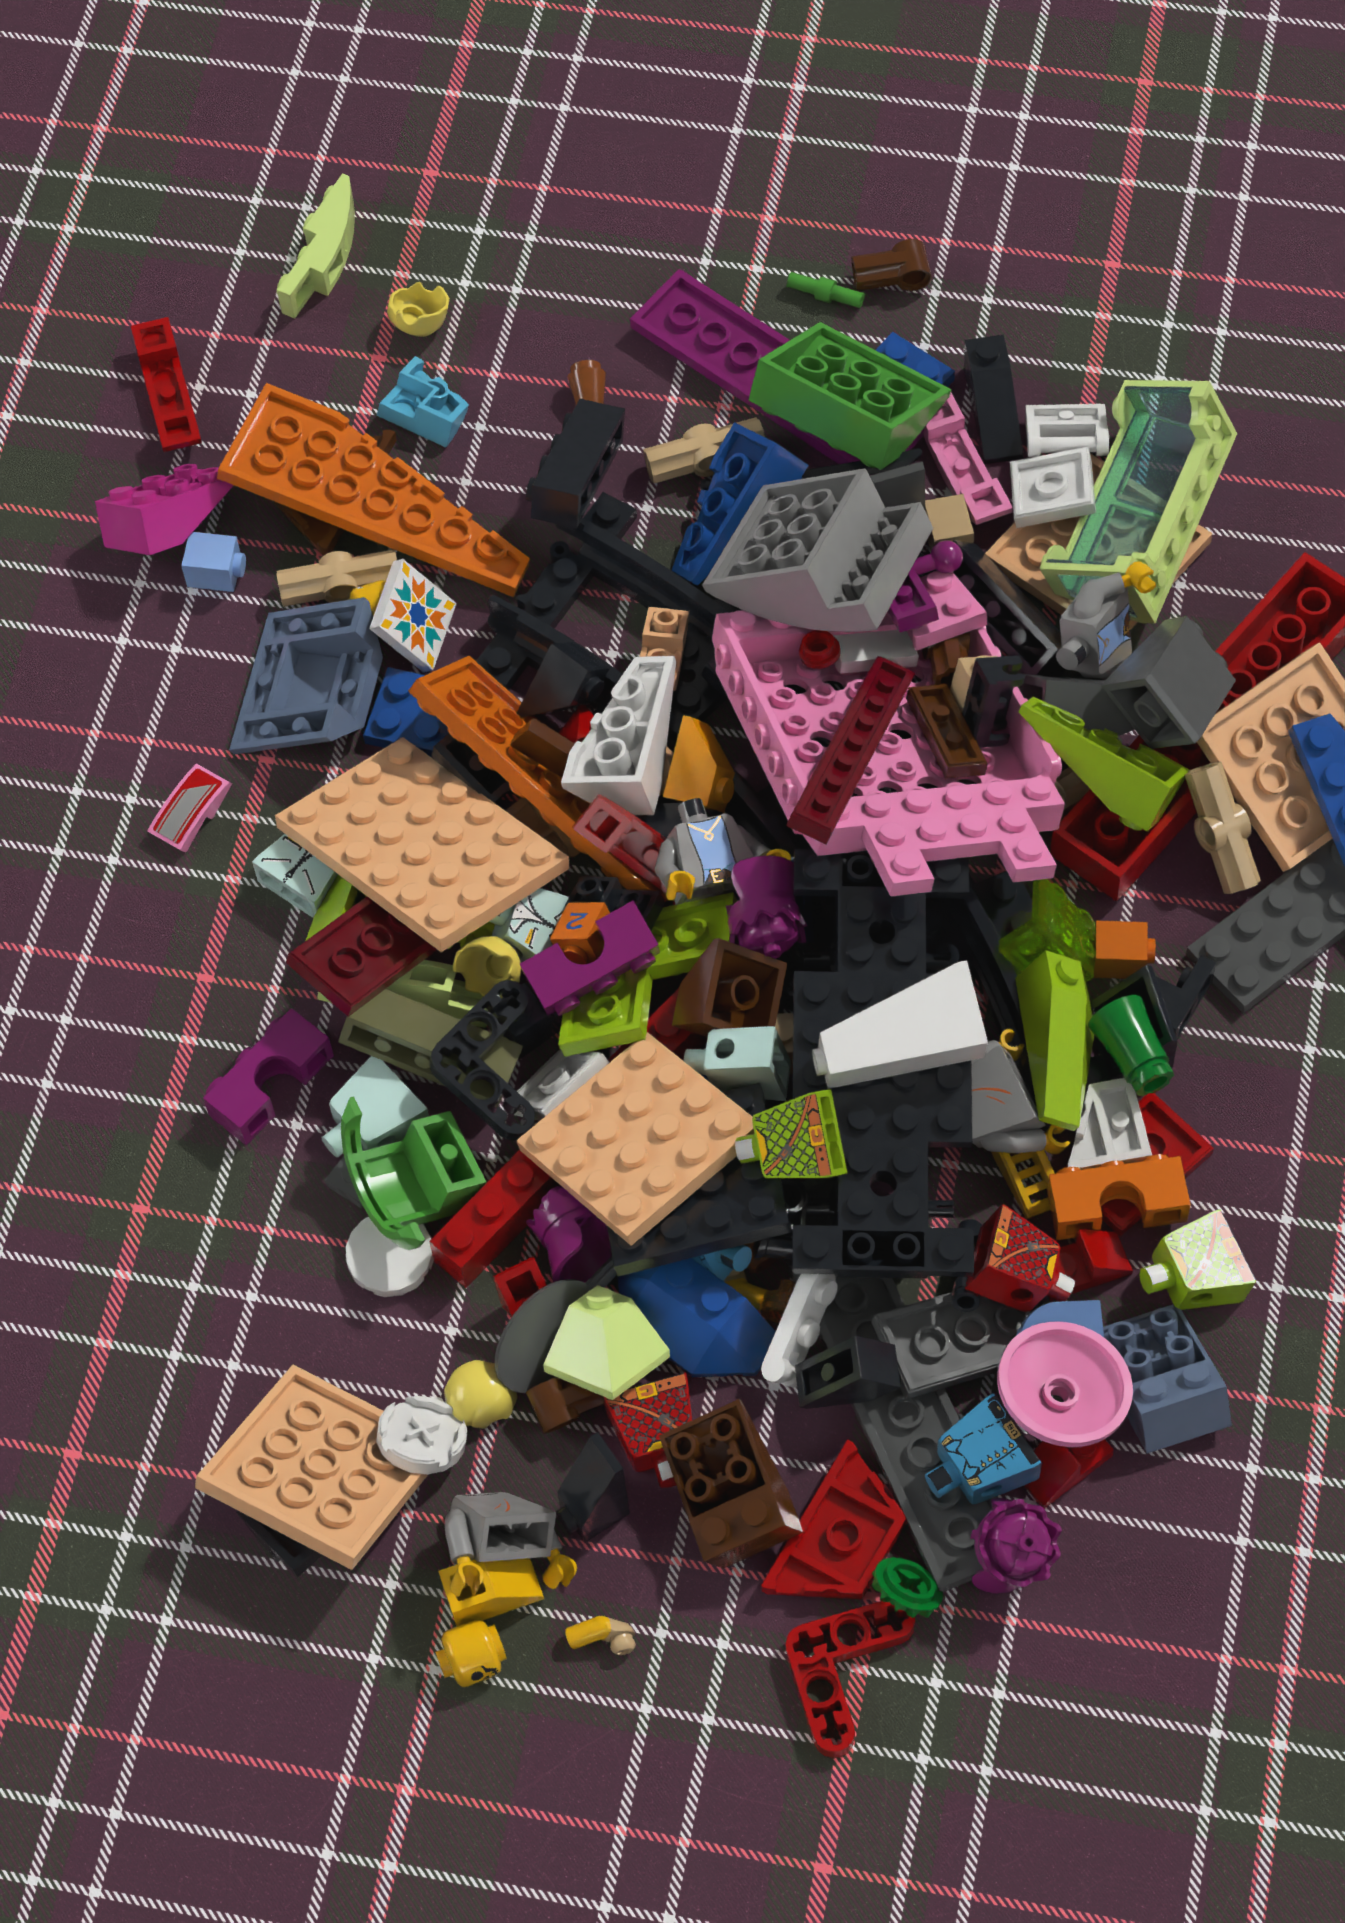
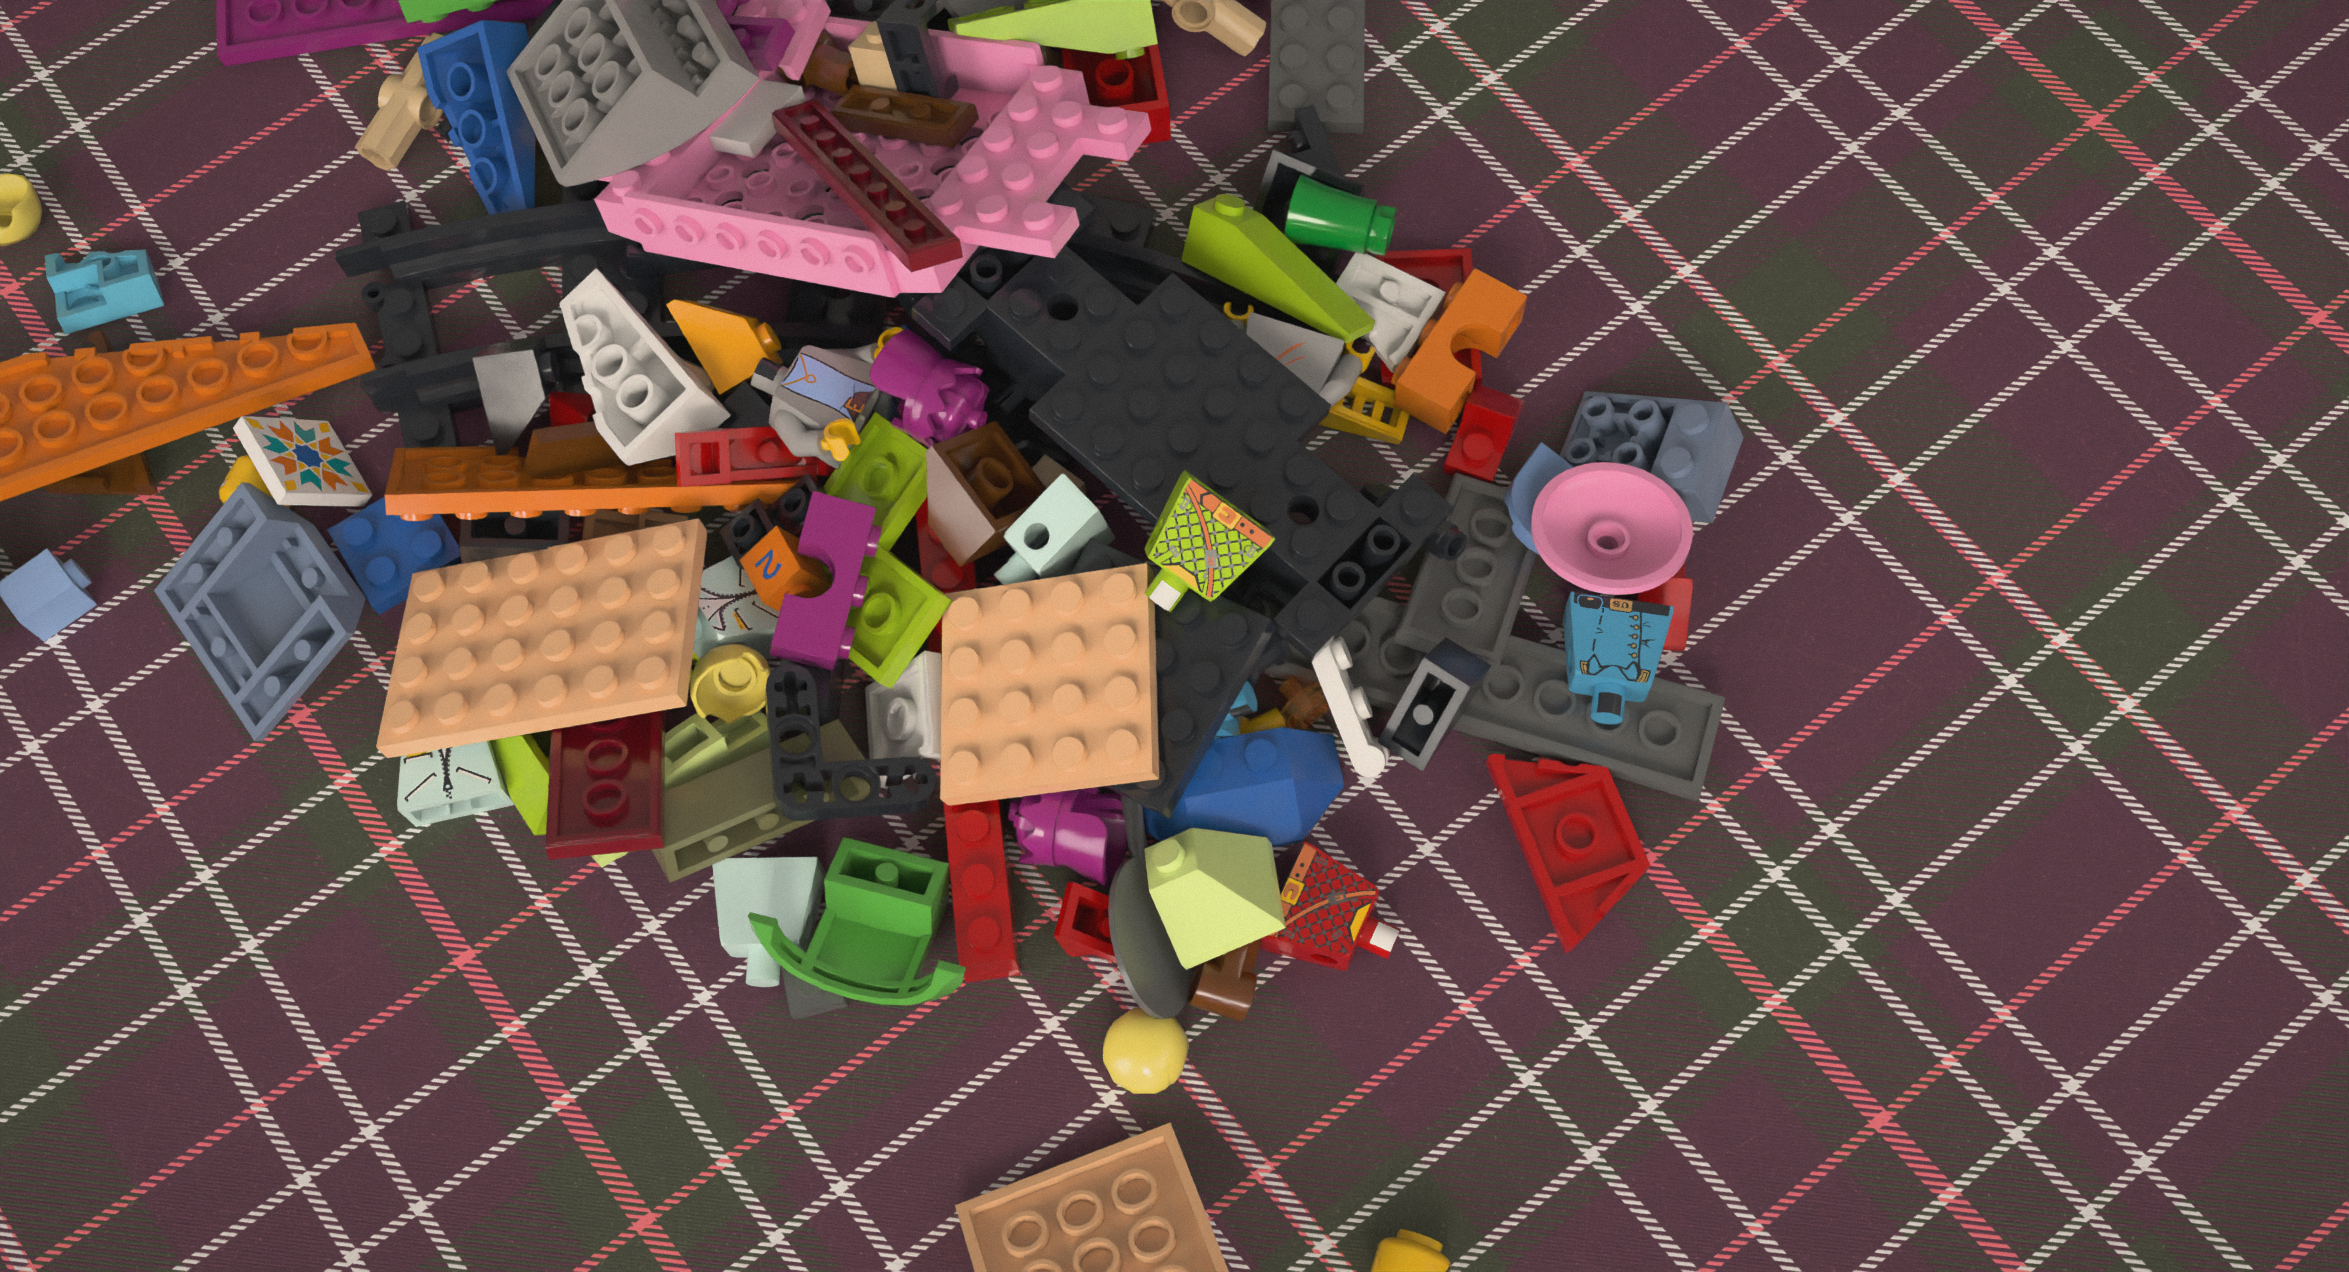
camera: 50 degrees left, 5 degrees up
(187, 807) = (274, 825): slope -> none
(288, 1047) = (621, 936): magenta arch -> none
(333, 576) = (185, 500): tan piece -> none
(383, 1265) = (926, 1033): white tile -> none
(421, 1435) = (1146, 1140): white tile -> none
(499, 1529) = (1315, 1148): light grey torso -> none
(503, 1589) = (1360, 1203): yellow slope -> none
(576, 463) = (309, 204): black brick -> none
(587, 381) = (243, 142): dark orange cone -> none
(593, 1491) = (1356, 1021): black slope -> none
(605, 1629) = (1485, 1131): arm -> none
(665, 635) = (554, 268): light nougat slope -> none
(729, 1486) = (1453, 893): reddish brown slope -> none
(819, 649) = (717, 150): red plate -> none
(823, 1667) = (1686, 957): red beam -> none
(897, 1578) = (1697, 818): green gear -> none
(906, 1033) = (1193, 355): white slope -> none
(1014, 1546) = (1727, 693): magenta hat -> none
(1016, 1263) = (1457, 468): red torso -> none
(1054, 927) = (1168, 202): clear neon green bracket -> none
(1121, 948) = (1223, 165): orange brick -> none
(1199, 1265) = (1576, 340): lime torso -> none

